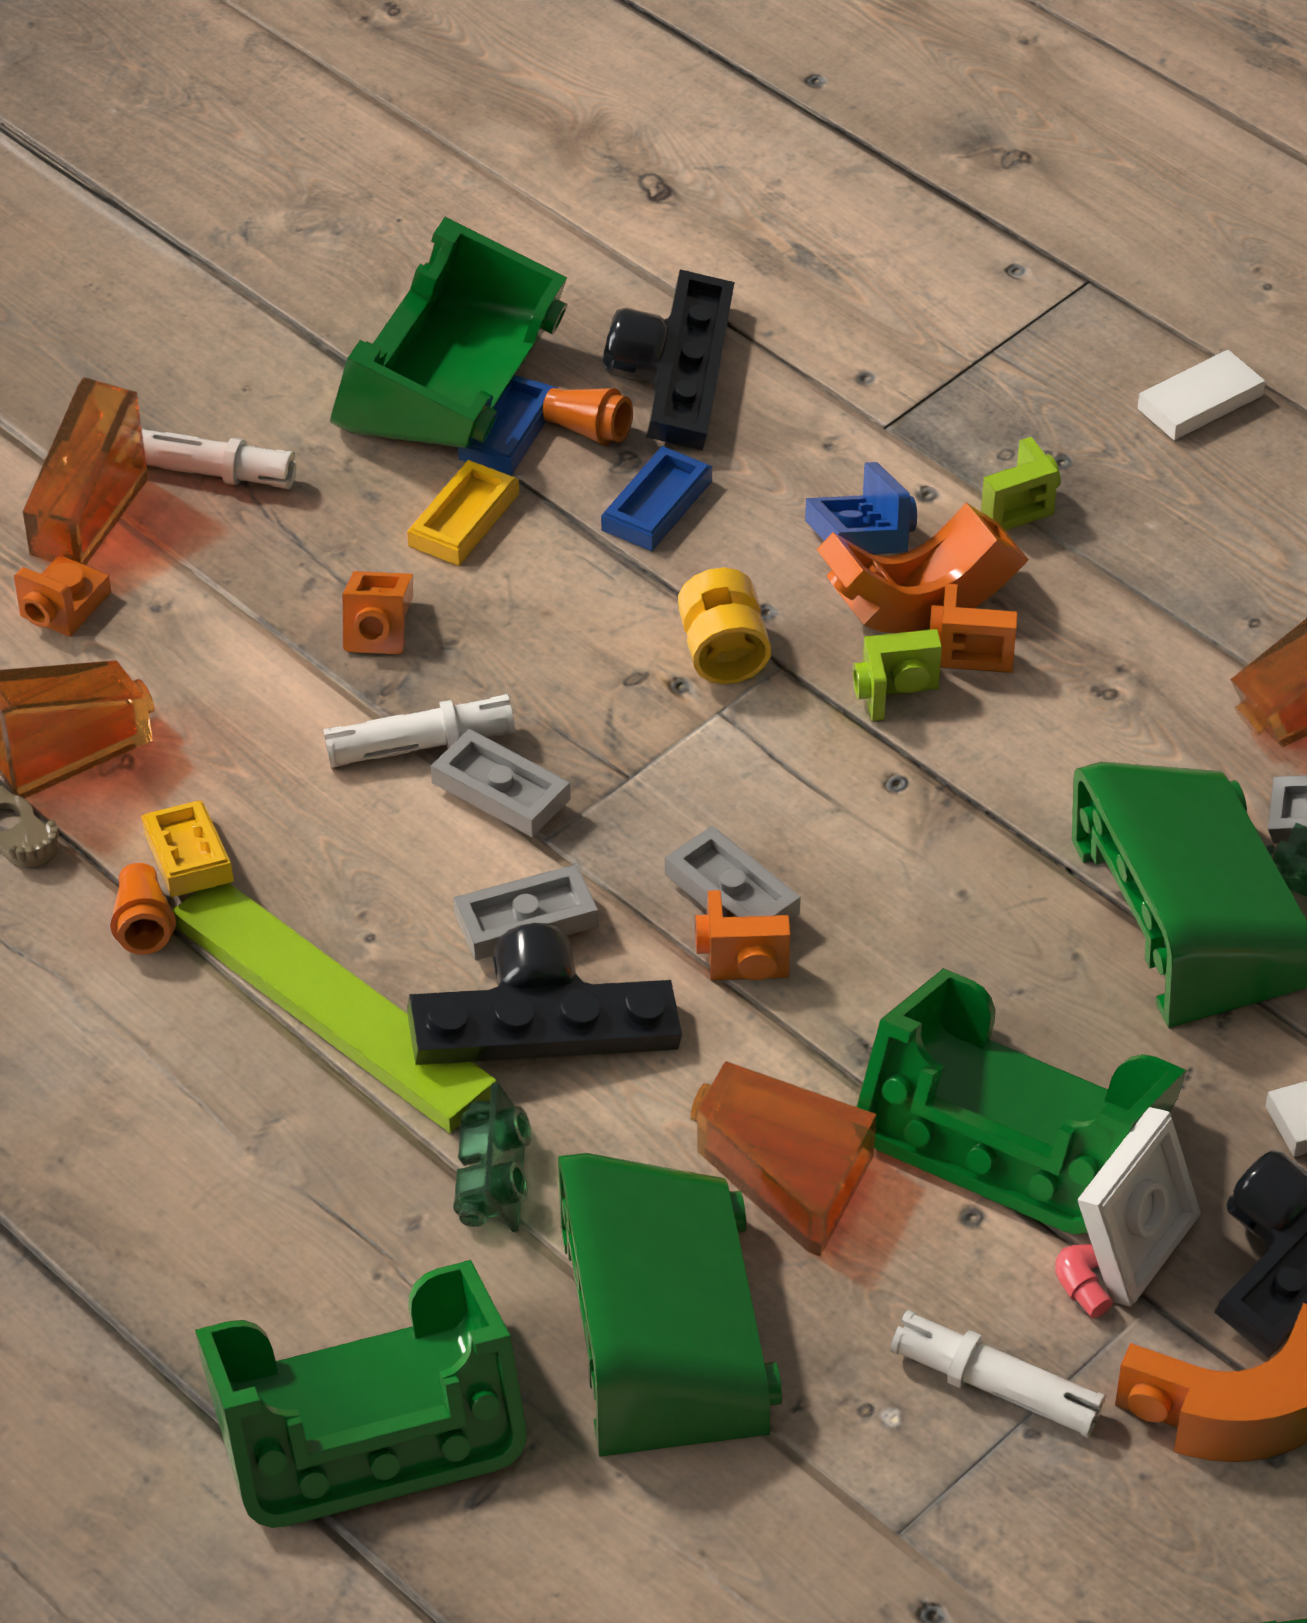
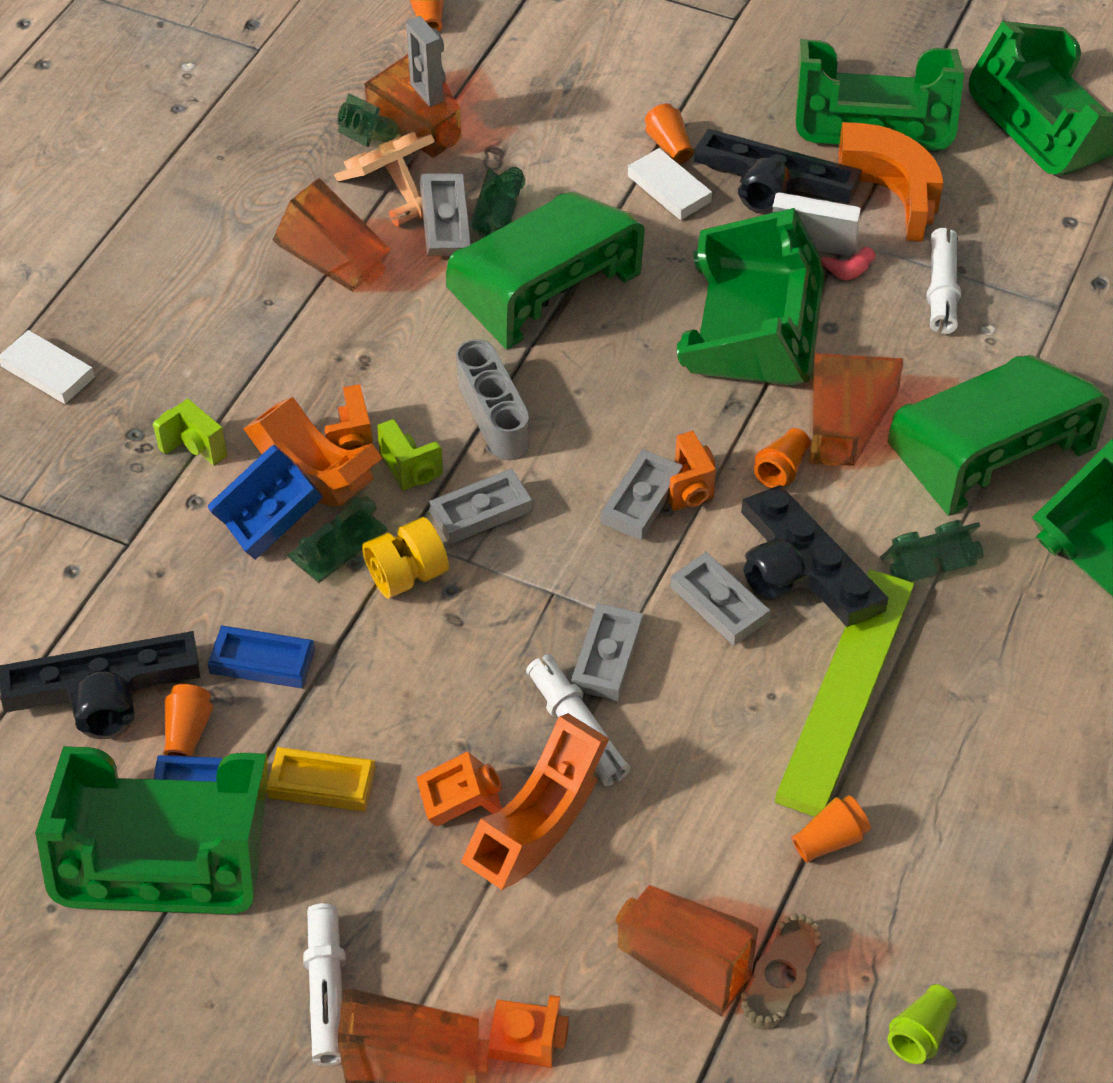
camera: 110 degrees left, 5 degrees up
(187, 848) = (762, 821): yellow plate -> none
(295, 644) = (530, 826): none -> orange arch
(719, 1036) = (781, 459): none -> orange cone
(785, 725) = (480, 506): none -> light grey plate
(792, 585) = (338, 540): none -> clear green hinge
(959, 775) = (493, 399): none -> light grey beam

